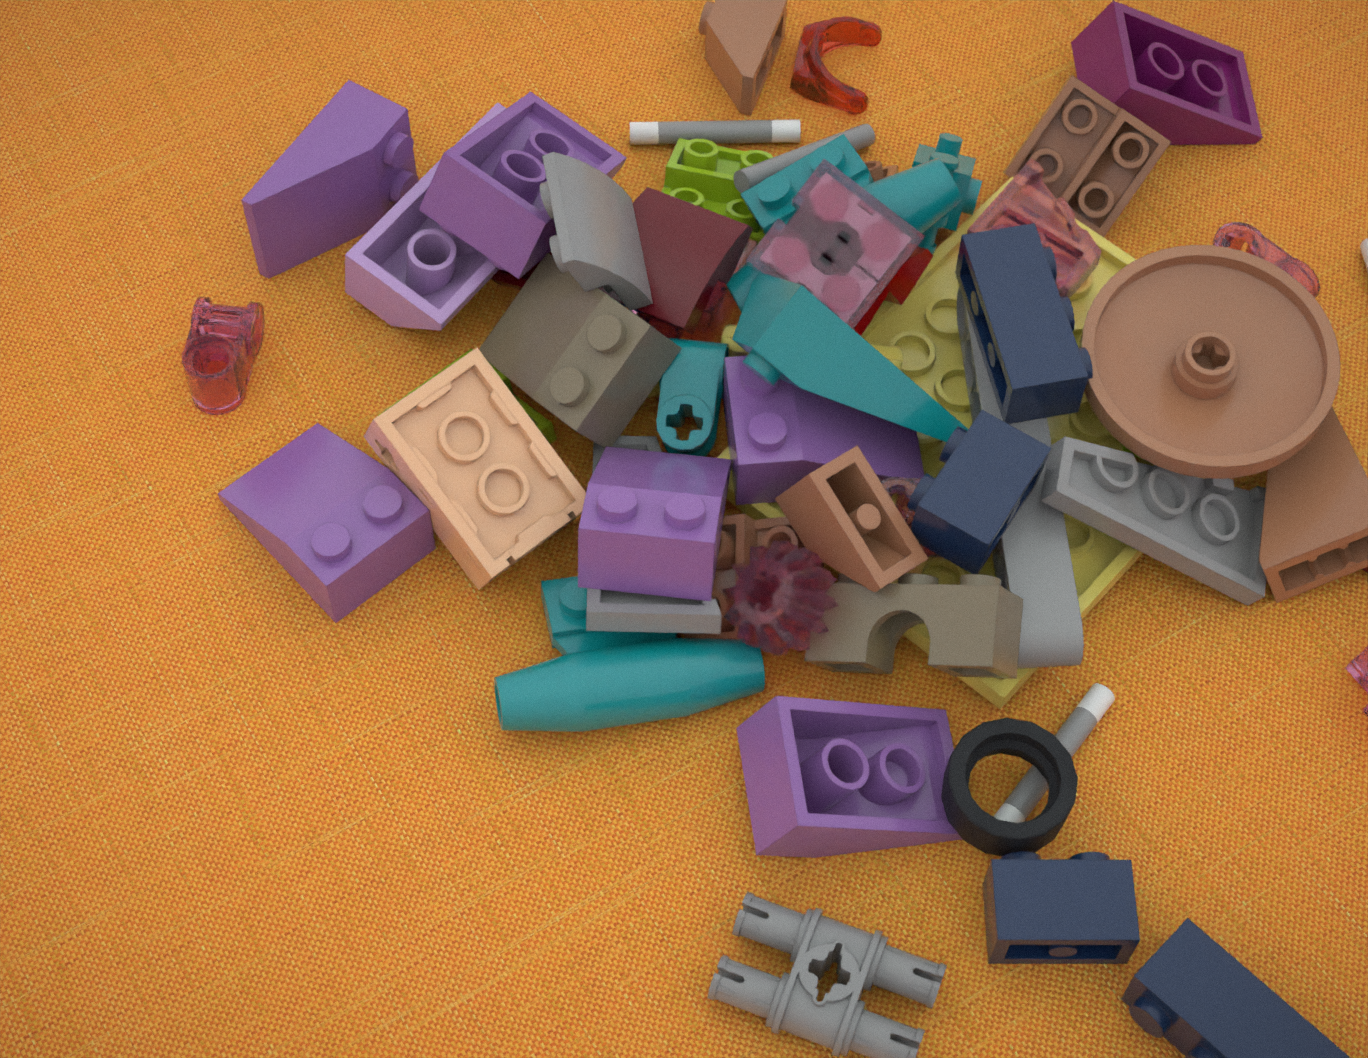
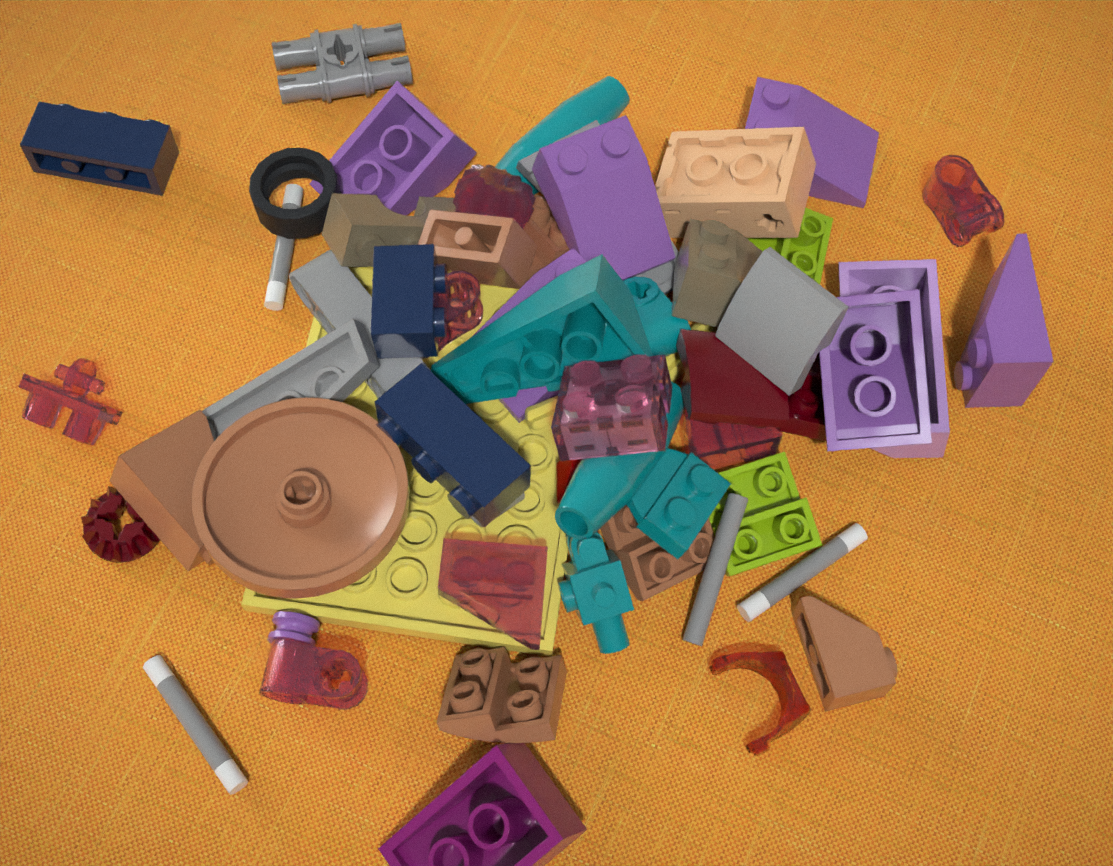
camera: 145 degrees right, 5 degrees up
(1060, 910) = (226, 155): dark blue brick -> none

